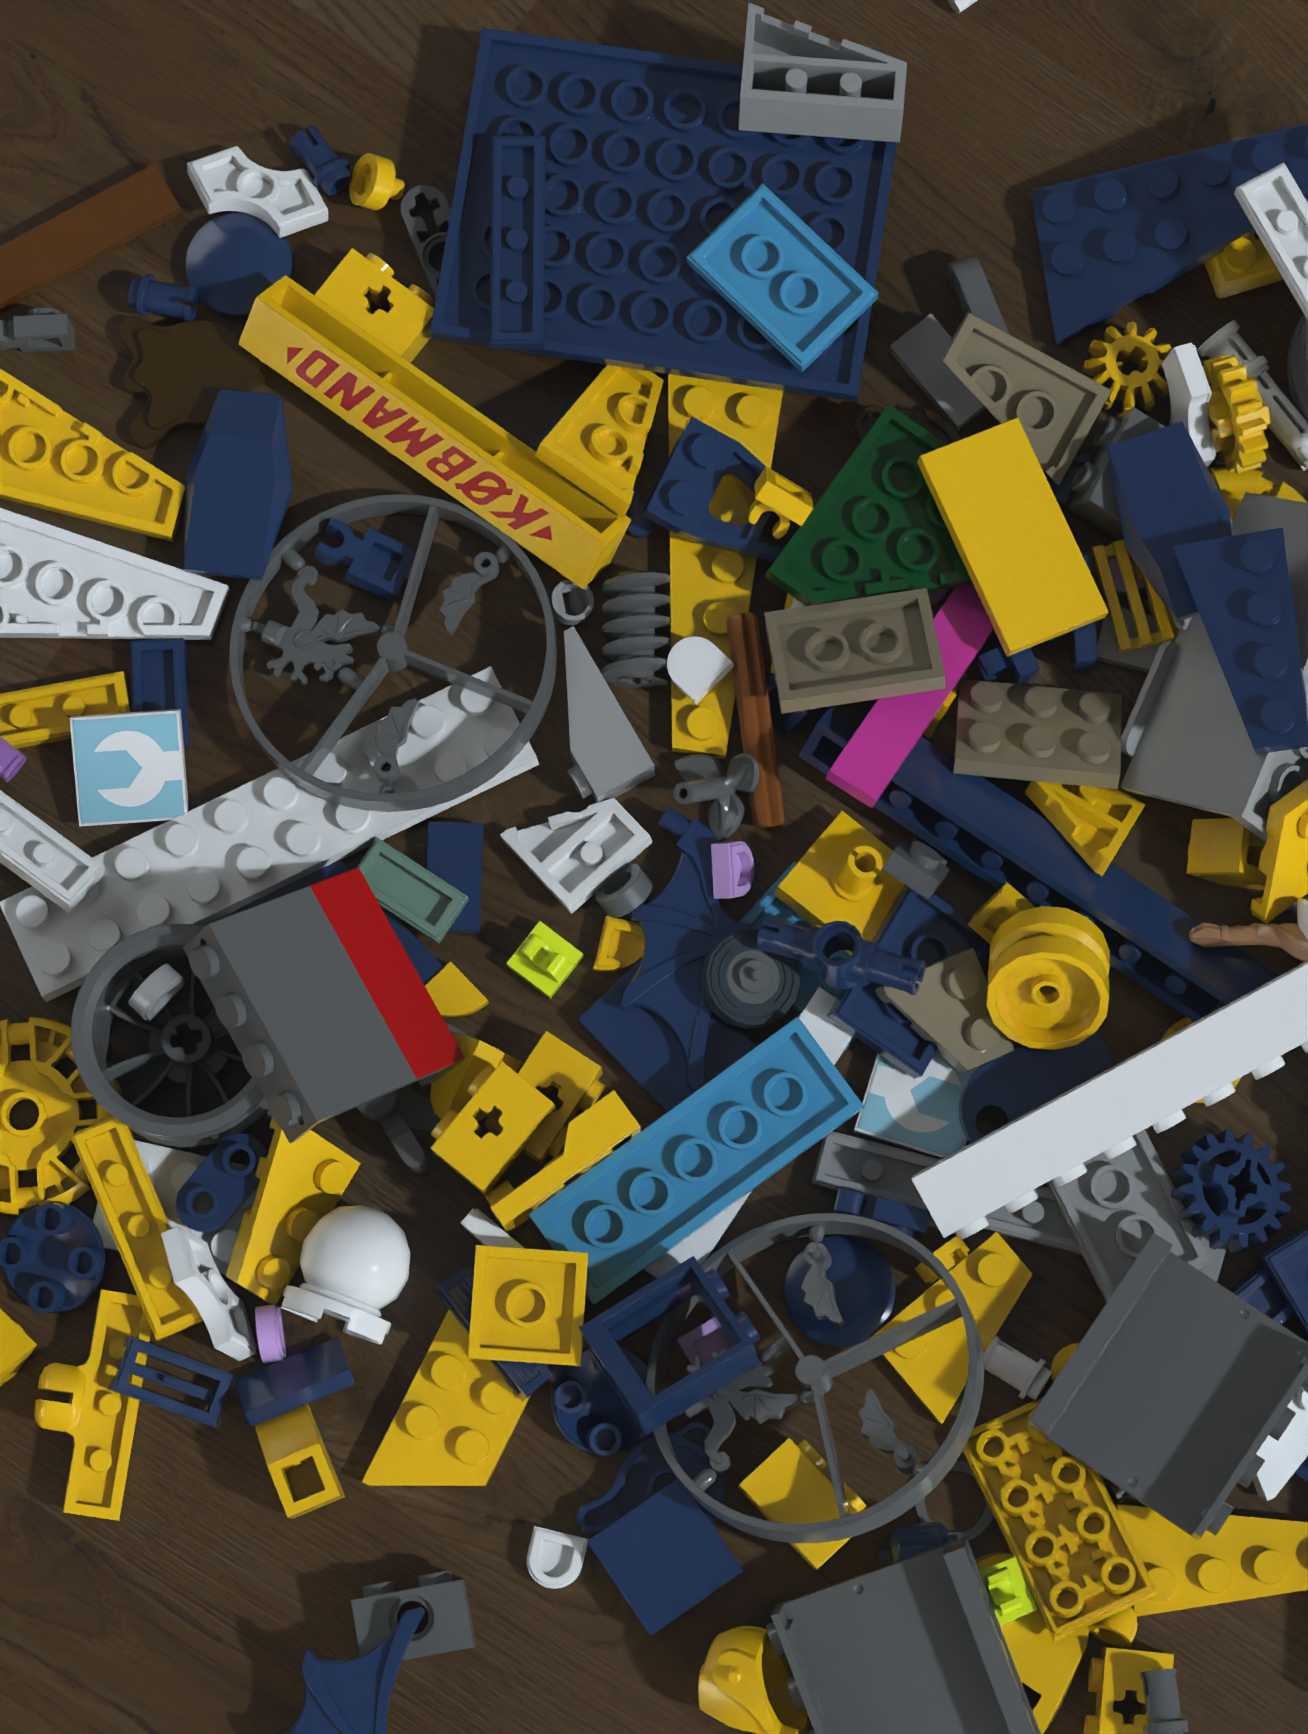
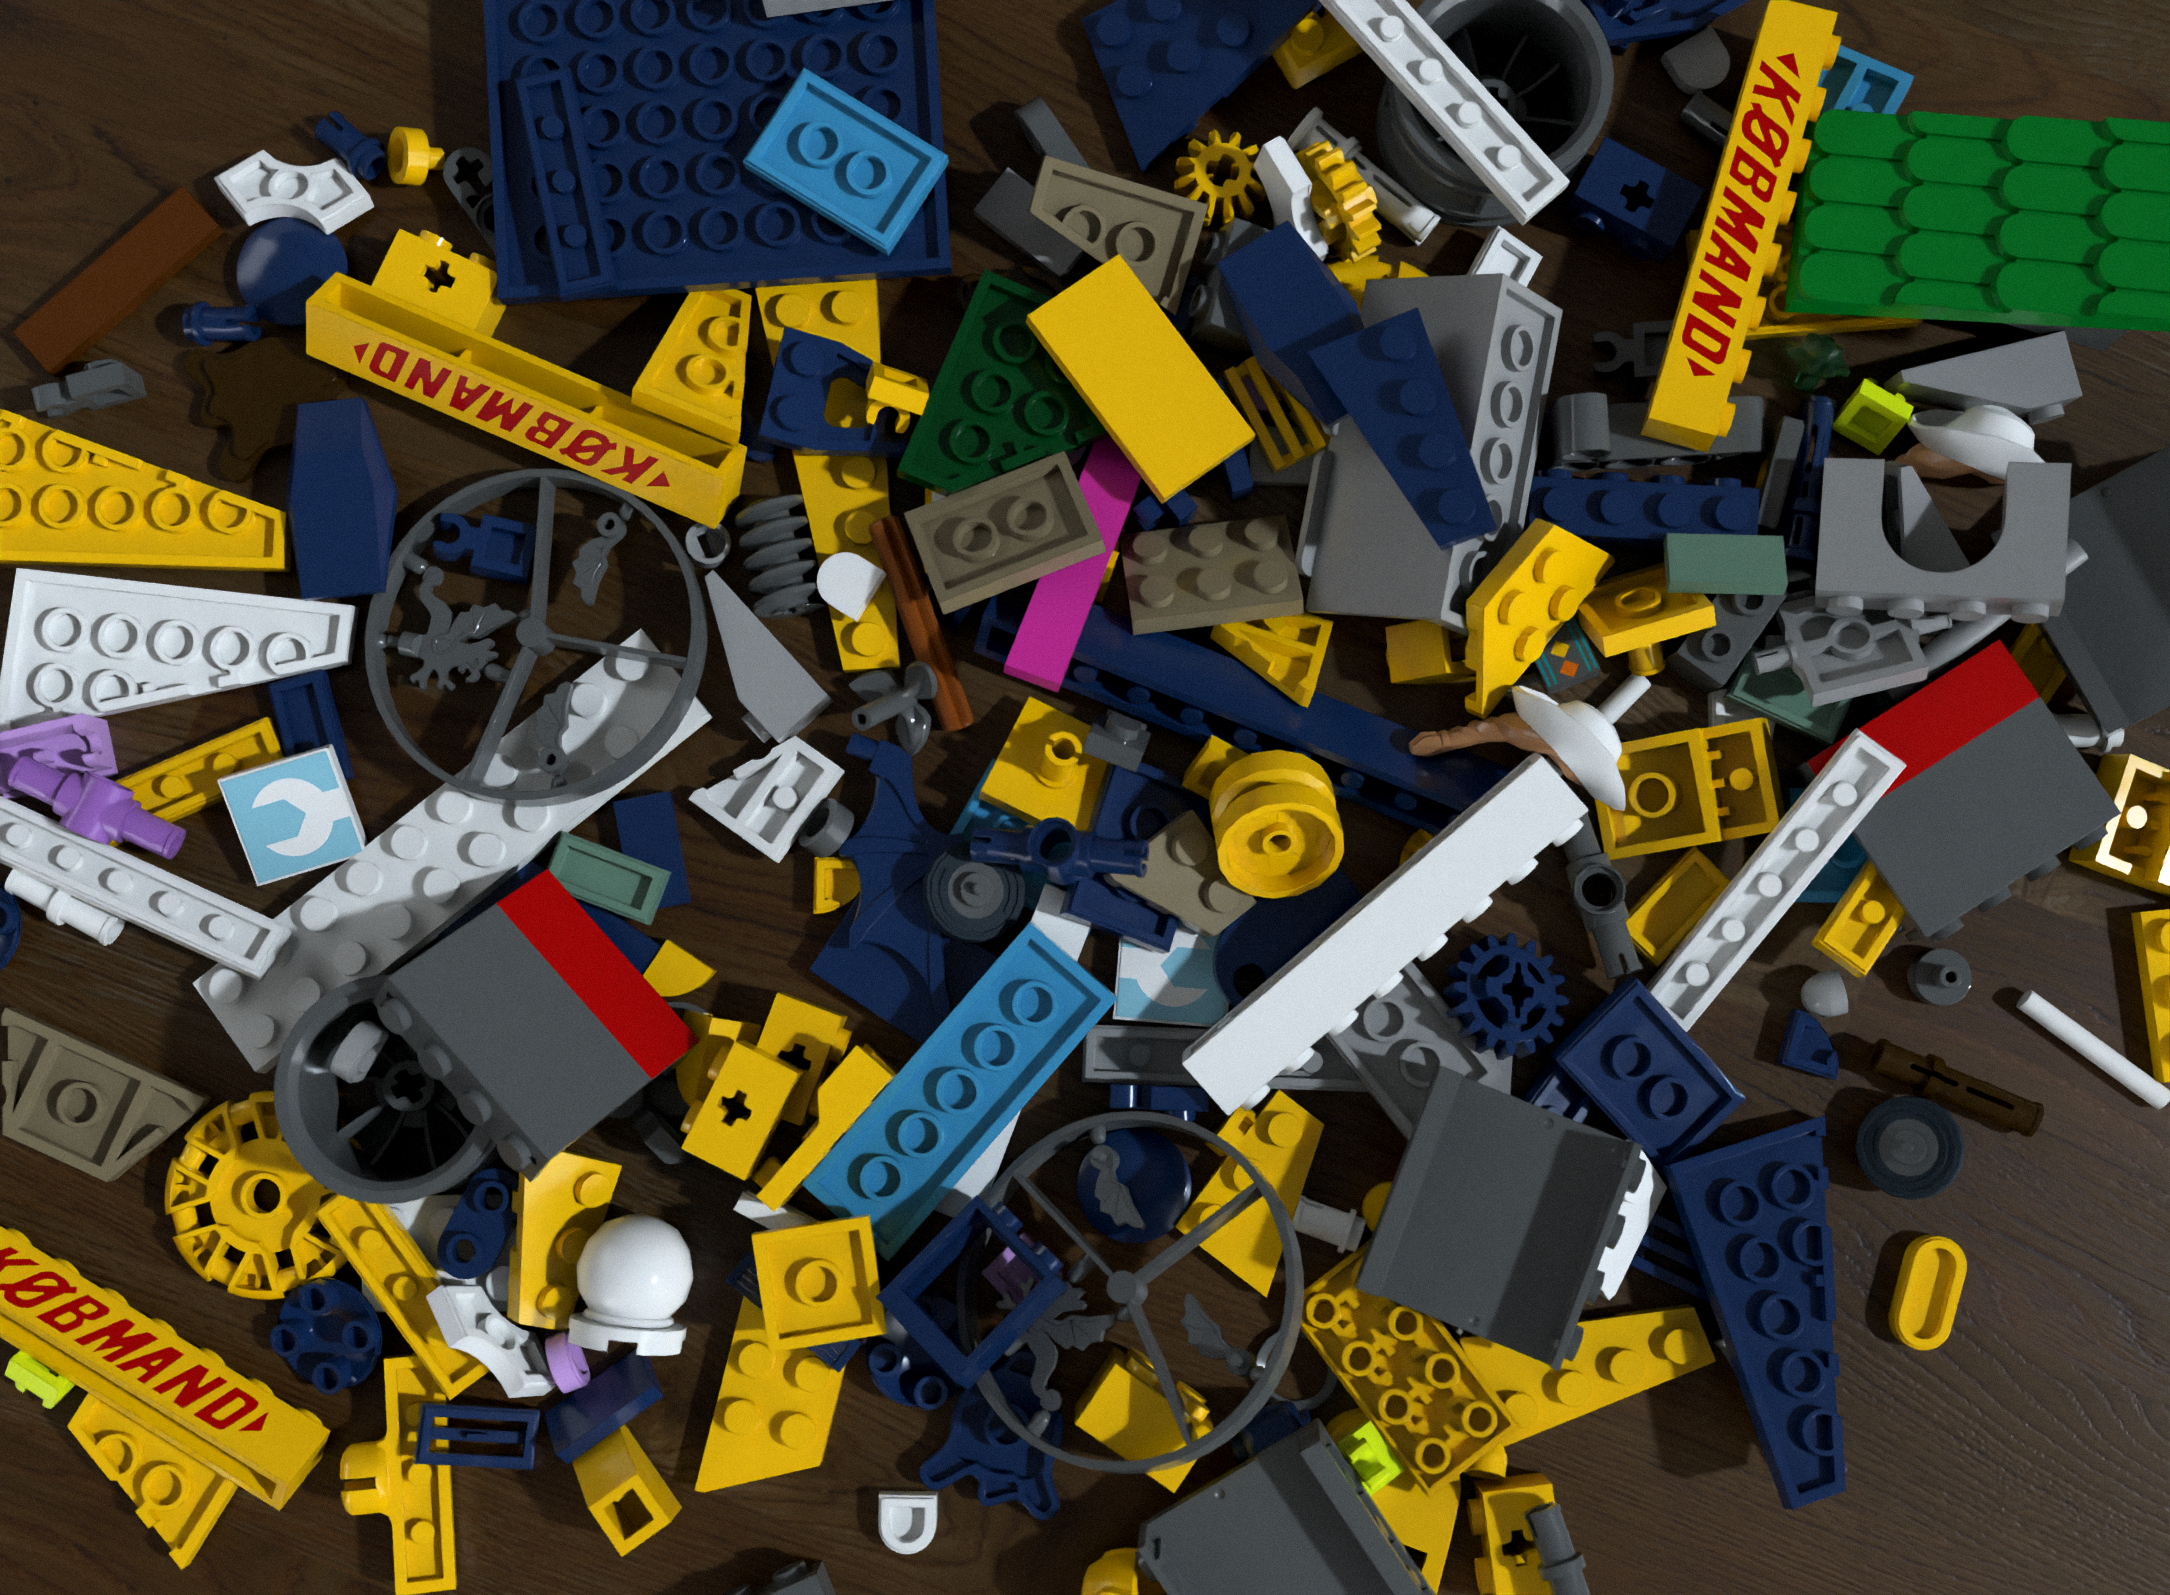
camera: 15 degrees left, 5 degrees up
(544, 960) = (762, 915): neon yellow tile -> none
(665, 1556) = (1016, 1502): dark blue tile -> none
(731, 869) = (930, 782): lavender tile -> none

